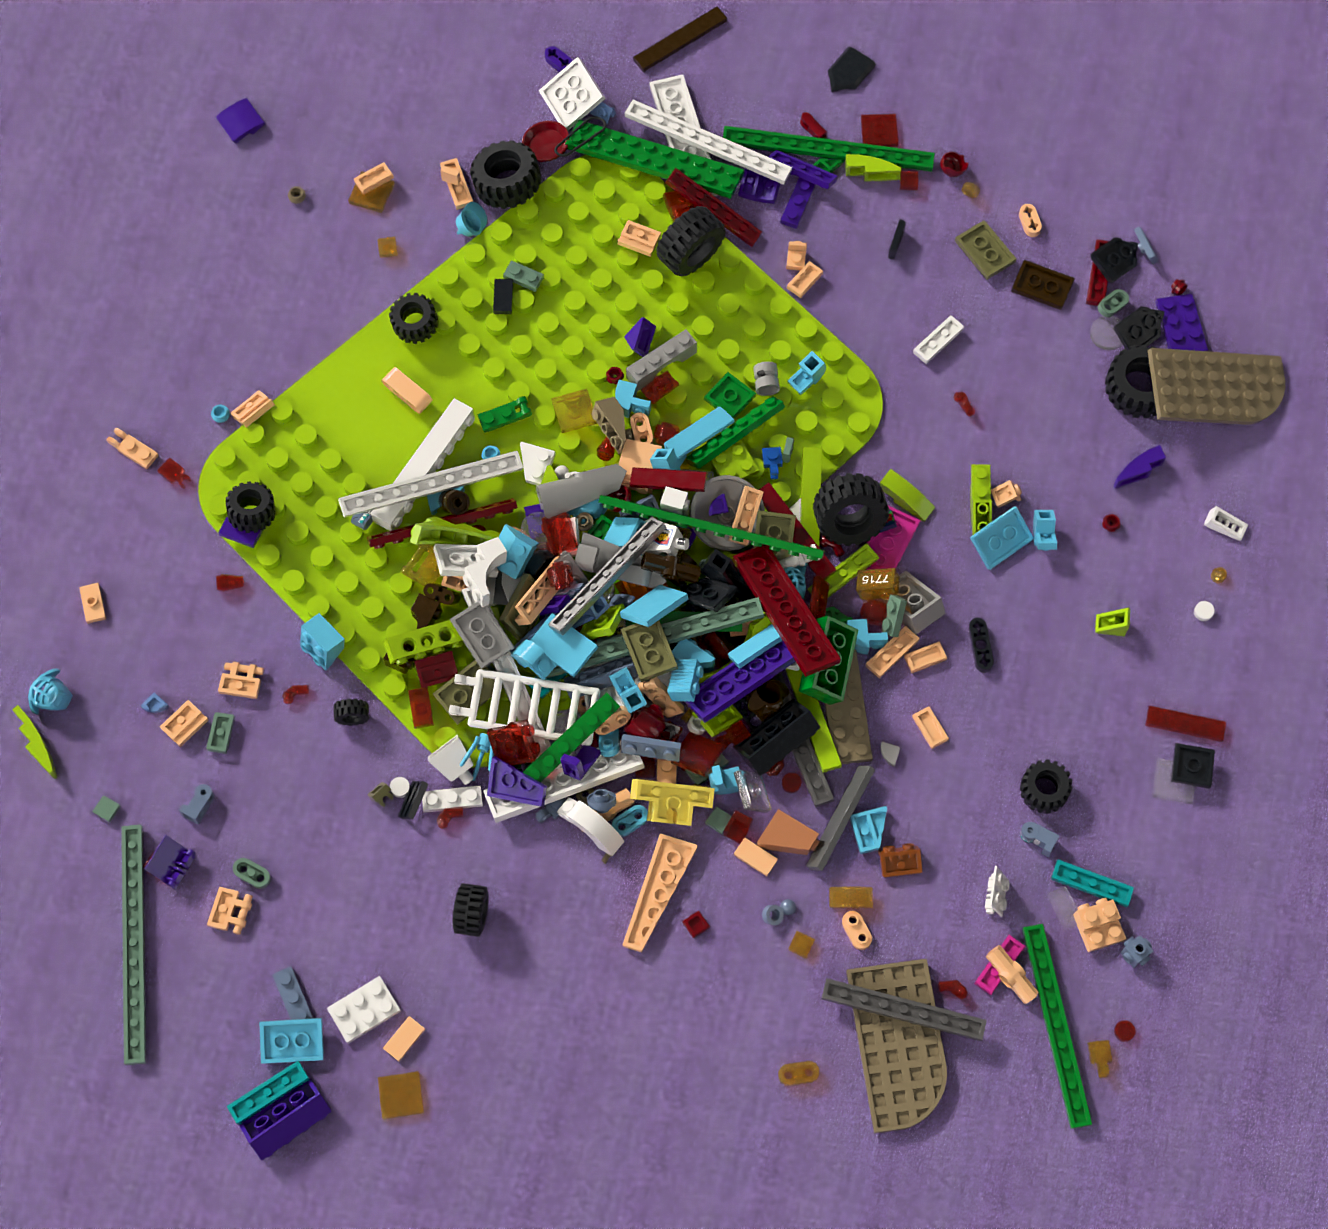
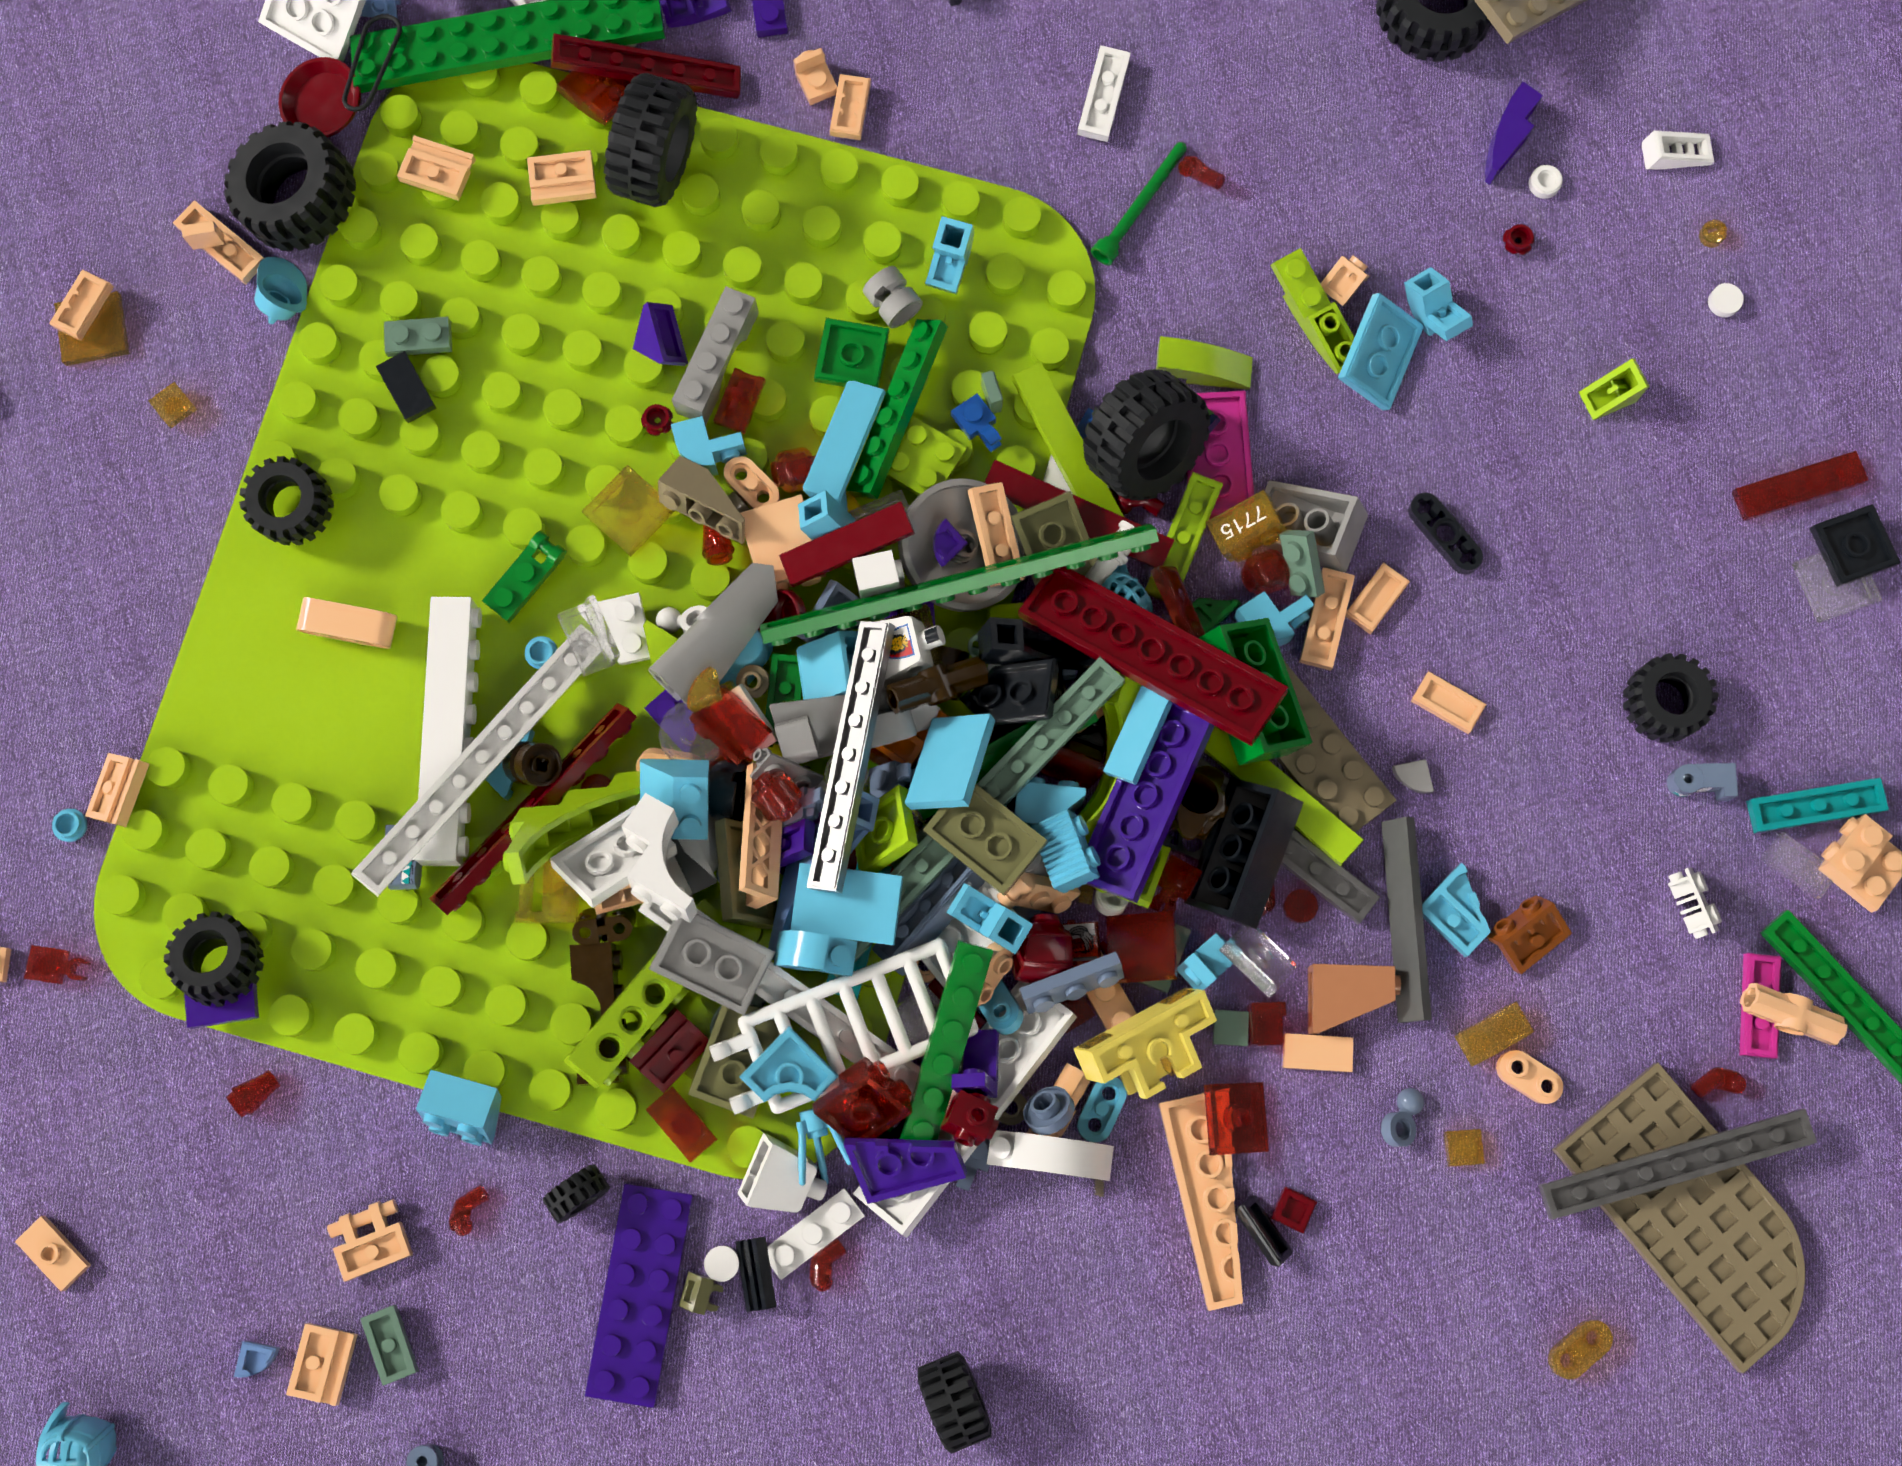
camera: 30 degrees left, 10 degrees up
(351, 779) = (639, 1296): none -> dark purple plate
(488, 705) = (789, 1067): none -> medium azure tile
(517, 457) = (589, 636): none -> clear panel
(556, 509) = (704, 690): none -> clear yellow tile
(560, 780) = (970, 1118): none -> dark red brick
(581, 202) = (436, 168): none -> light nougat plate
(674, 923) = (1263, 1231): none -> black tile
(693, 861) = (1236, 1118): none -> clear red plate
(891, 415) = (1106, 249): none -> green piece
(1144, 502) = (1545, 181): none -> white tile

